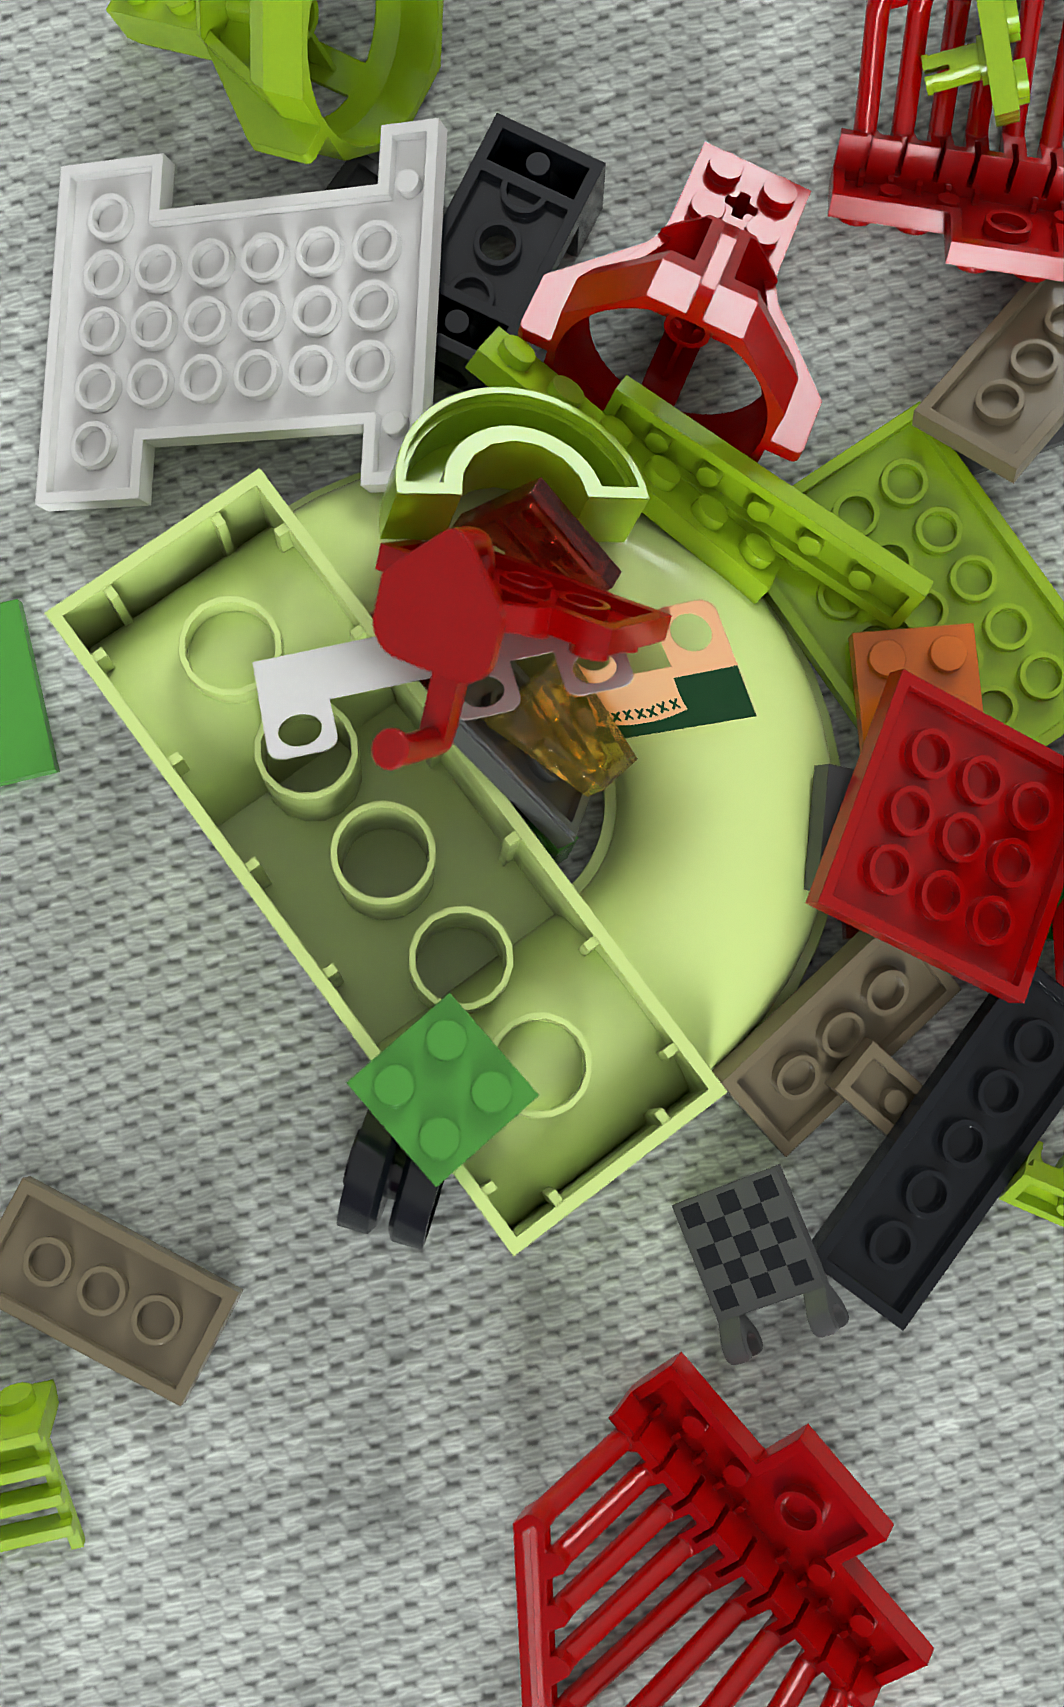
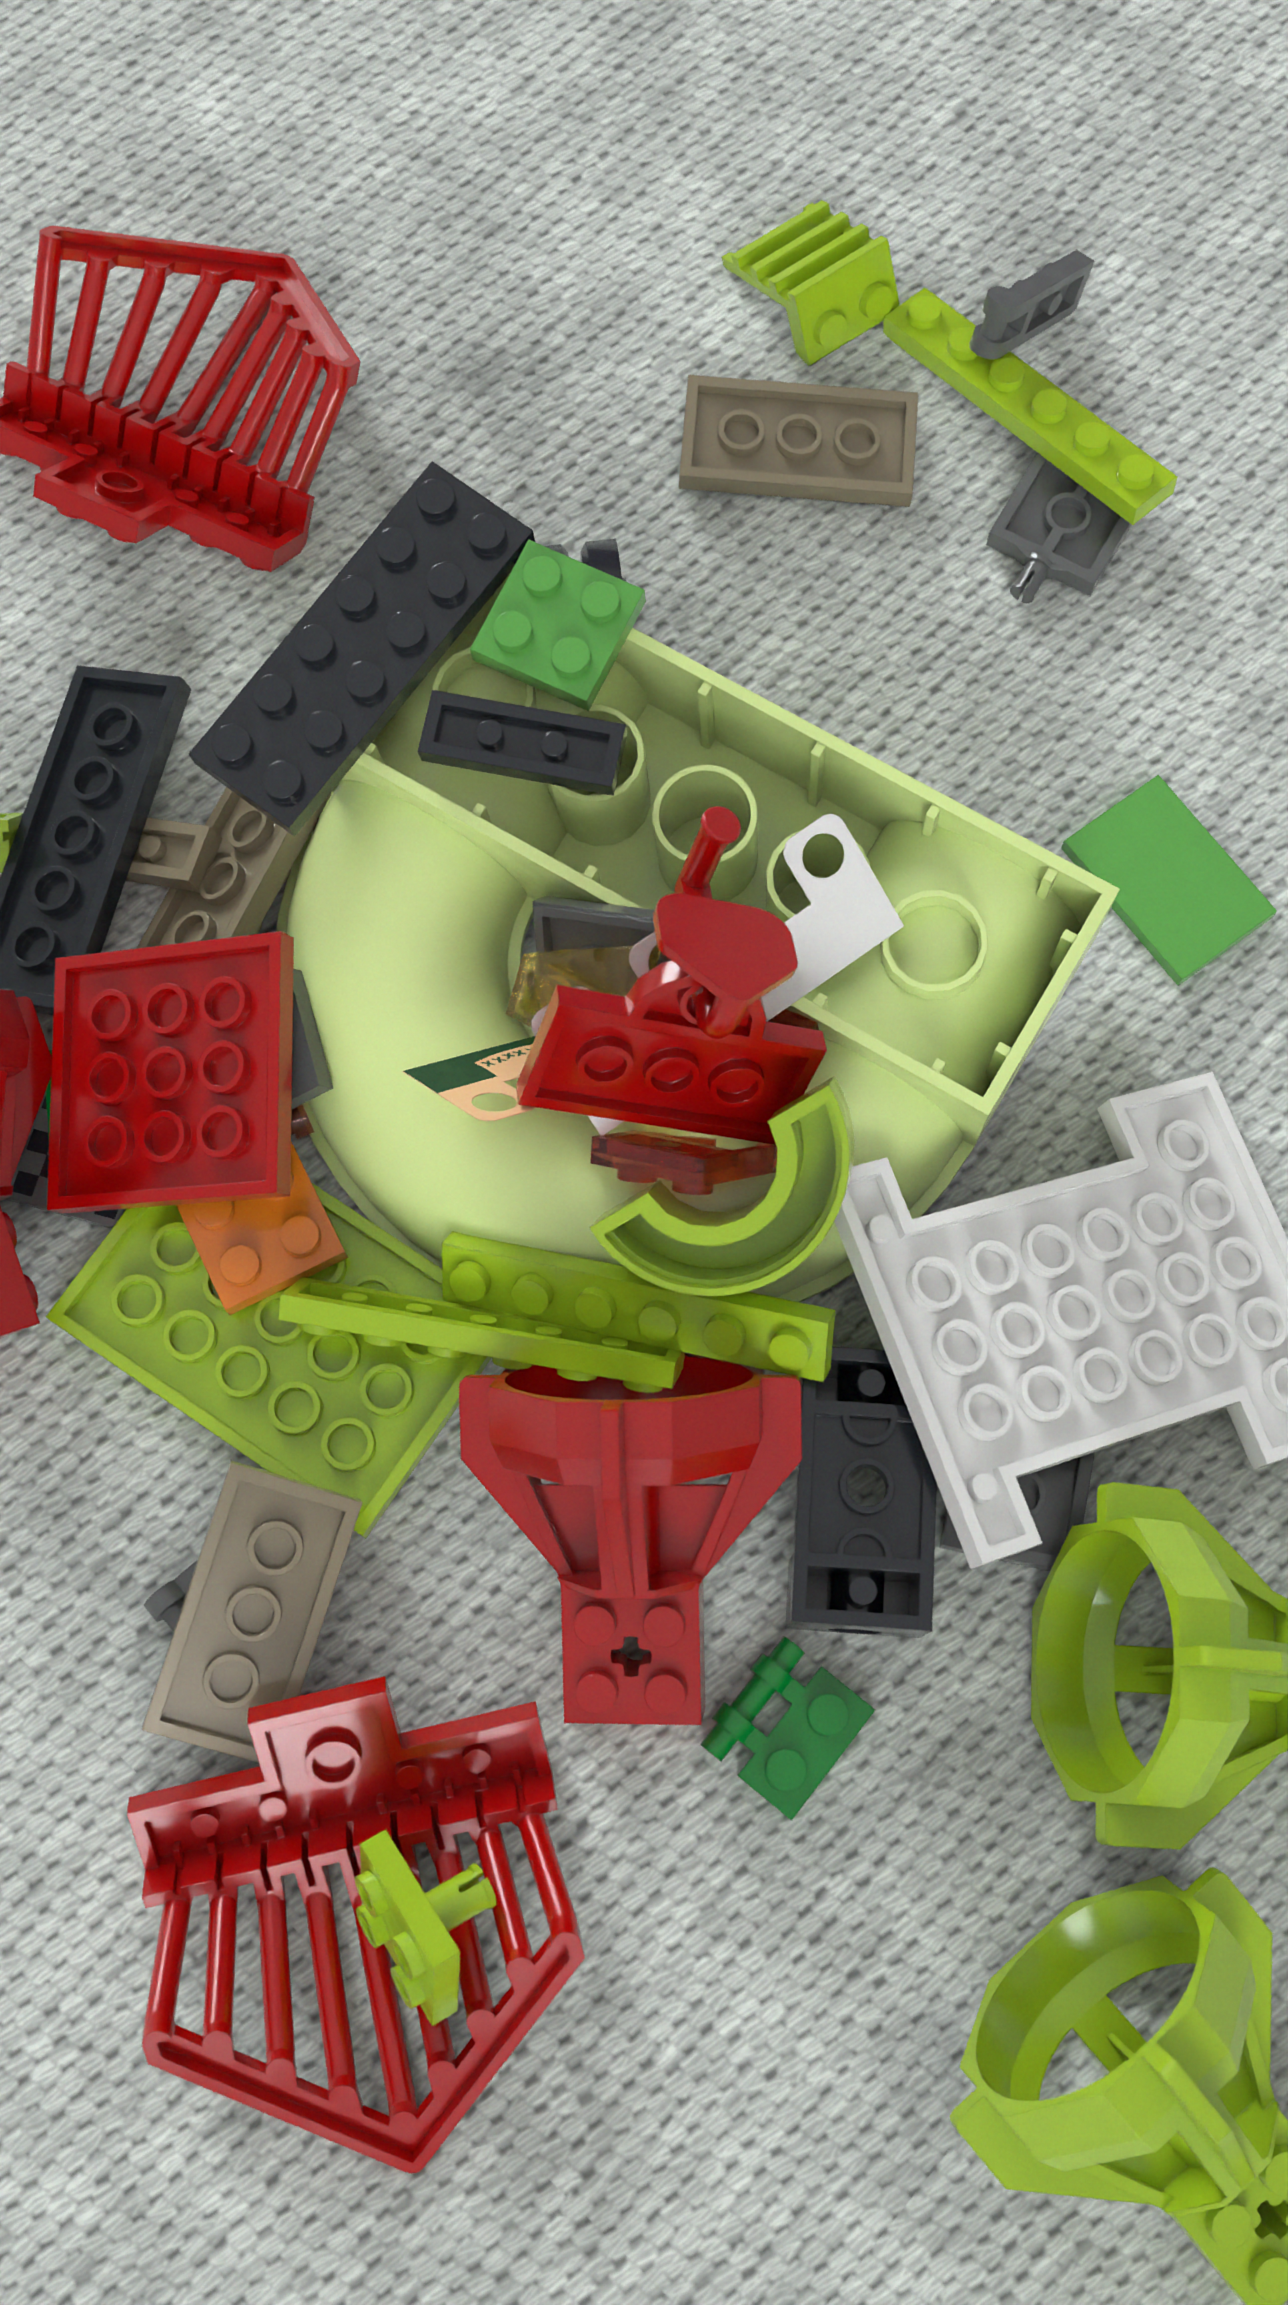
camera: 155 degrees right, 10 degrees down
(527, 977) = (522, 742): none -> black plate
(626, 117) = (803, 1742): none -> green plate
(636, 1151) = (362, 648): none -> black plate
(753, 1255) = (215, 664): dark grey flag -> none

